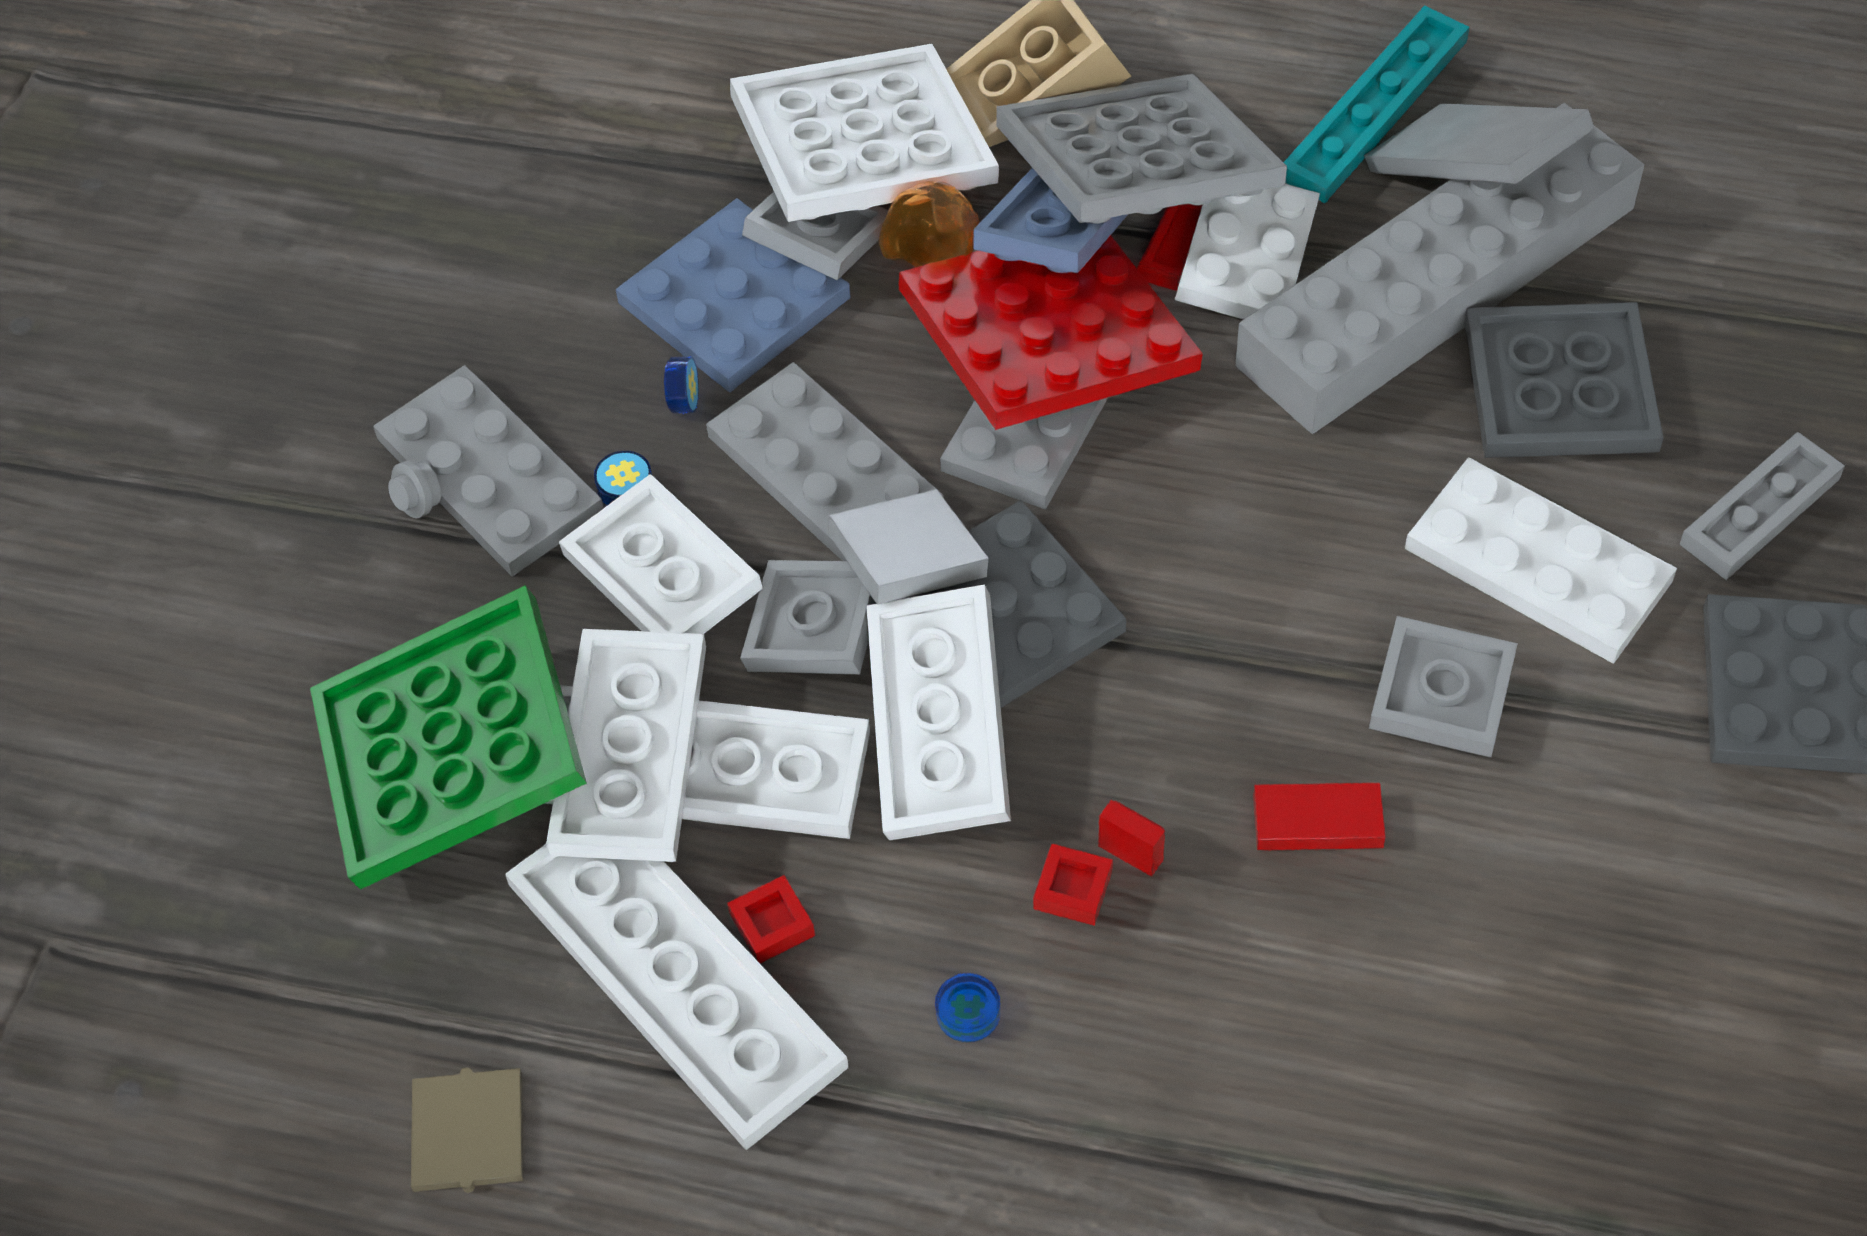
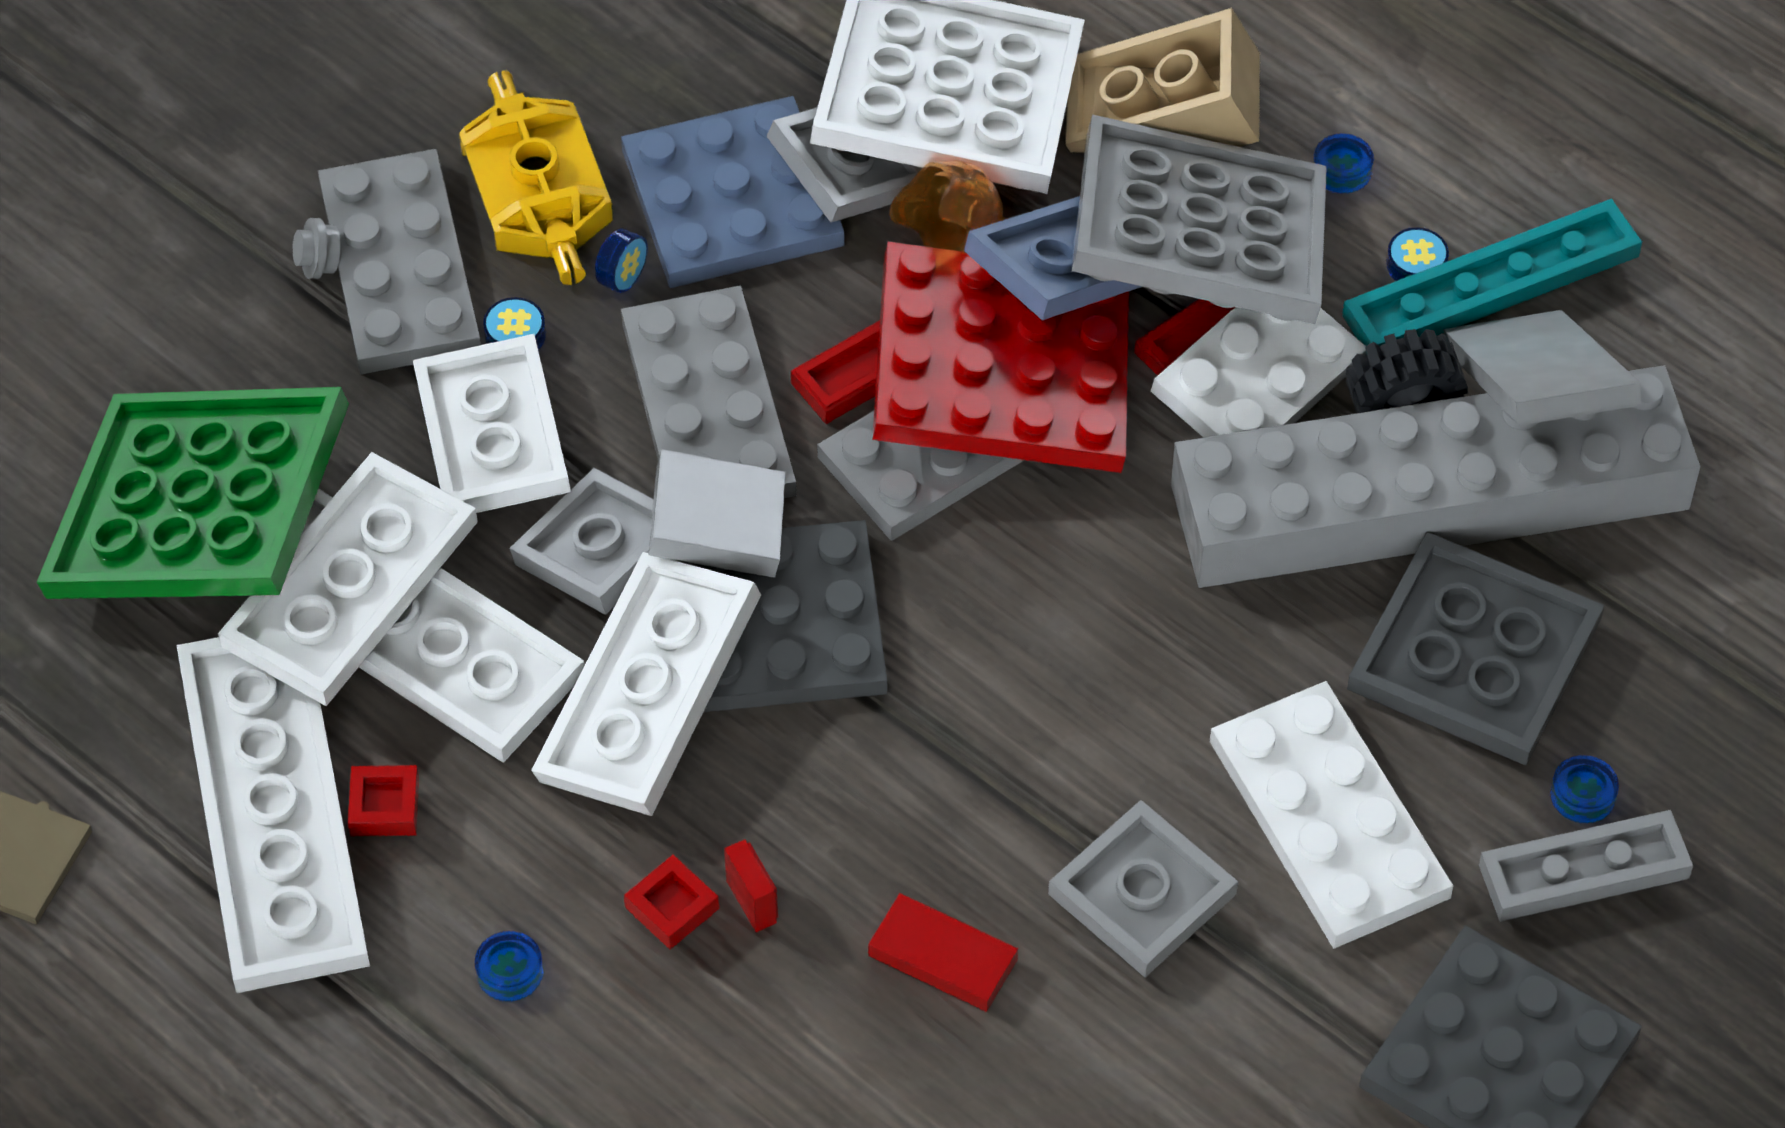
camera: 25 degrees right, 0 degrees up
(579, 378) = (541, 209): none -> yellow plate
(922, 393) = (841, 375): none -> red tile
(1204, 62) = (1346, 161): none -> clear blue tile
(1303, 110) = (1414, 252): none -> tile
(1374, 195) = (1405, 372): none -> black tyre
(1714, 449) = (1584, 789): none -> clear blue tile

